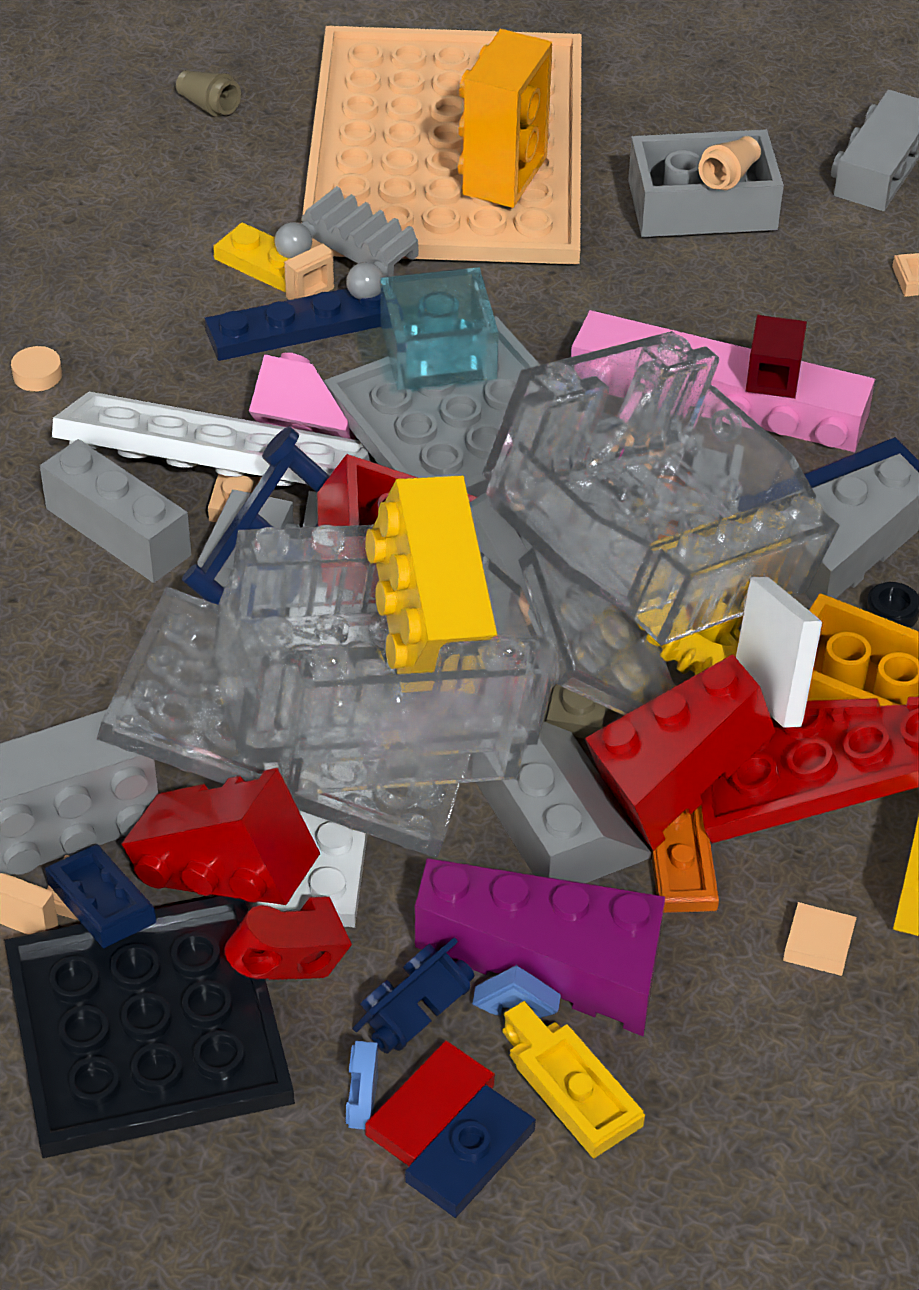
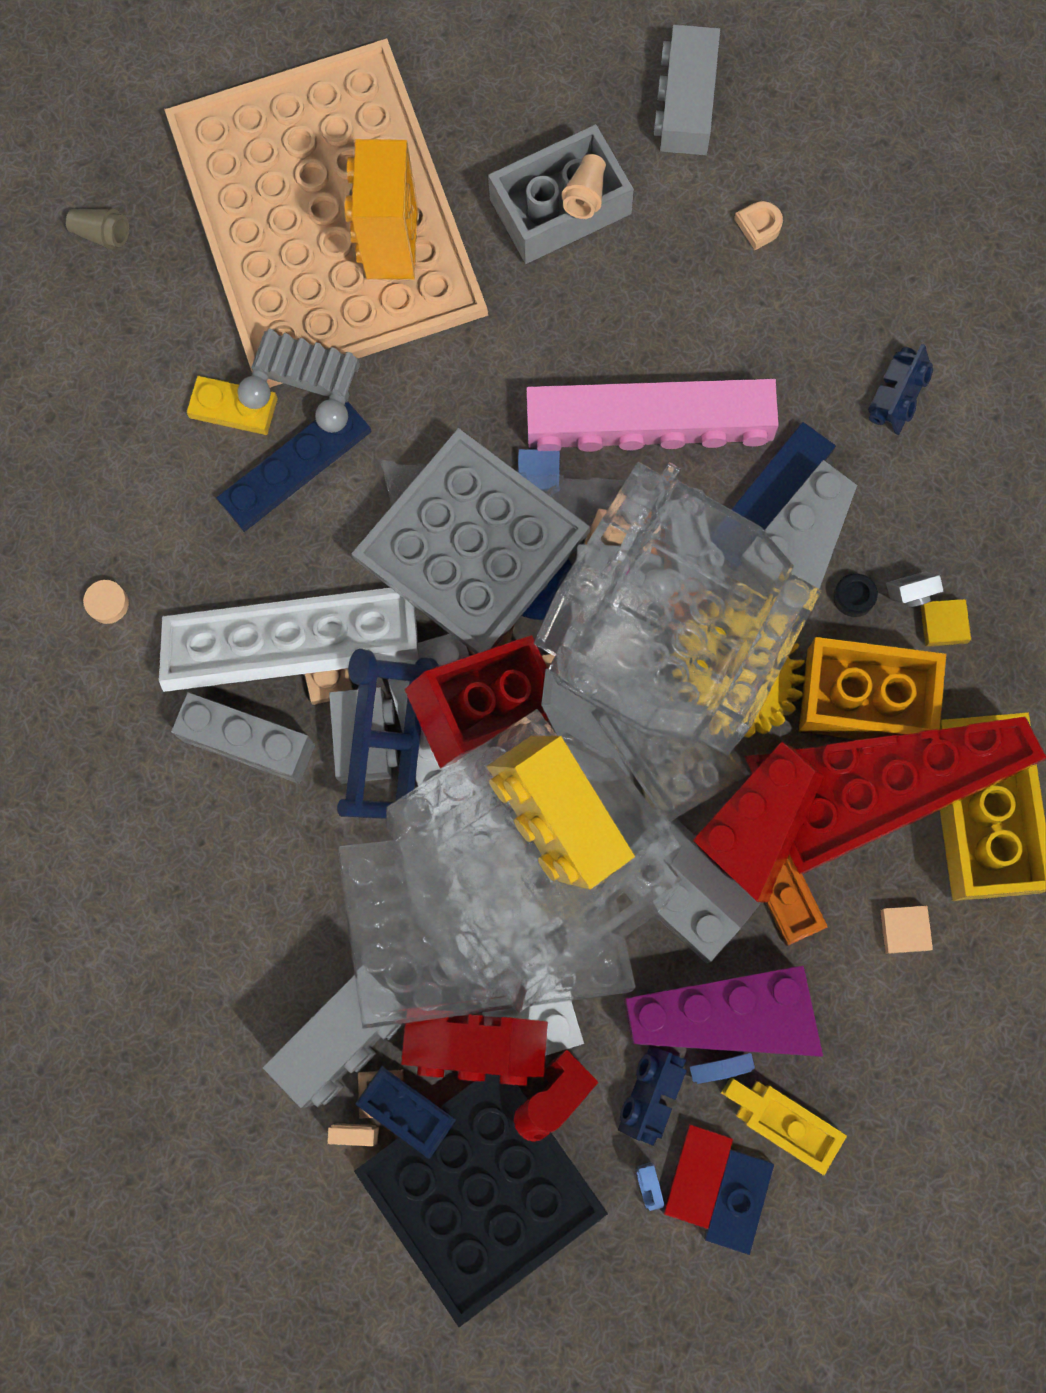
camera: 15 degrees left, 30 degrees up
(295, 396) = (332, 571): bright pink slope -> none
(309, 273) = (280, 419): light nougat tile -> none
(439, 328) = (429, 482): clear light blue brick -> none
(776, 356) = (698, 396): dark red brick -> none
(779, 648) = (812, 724): white tile -> none

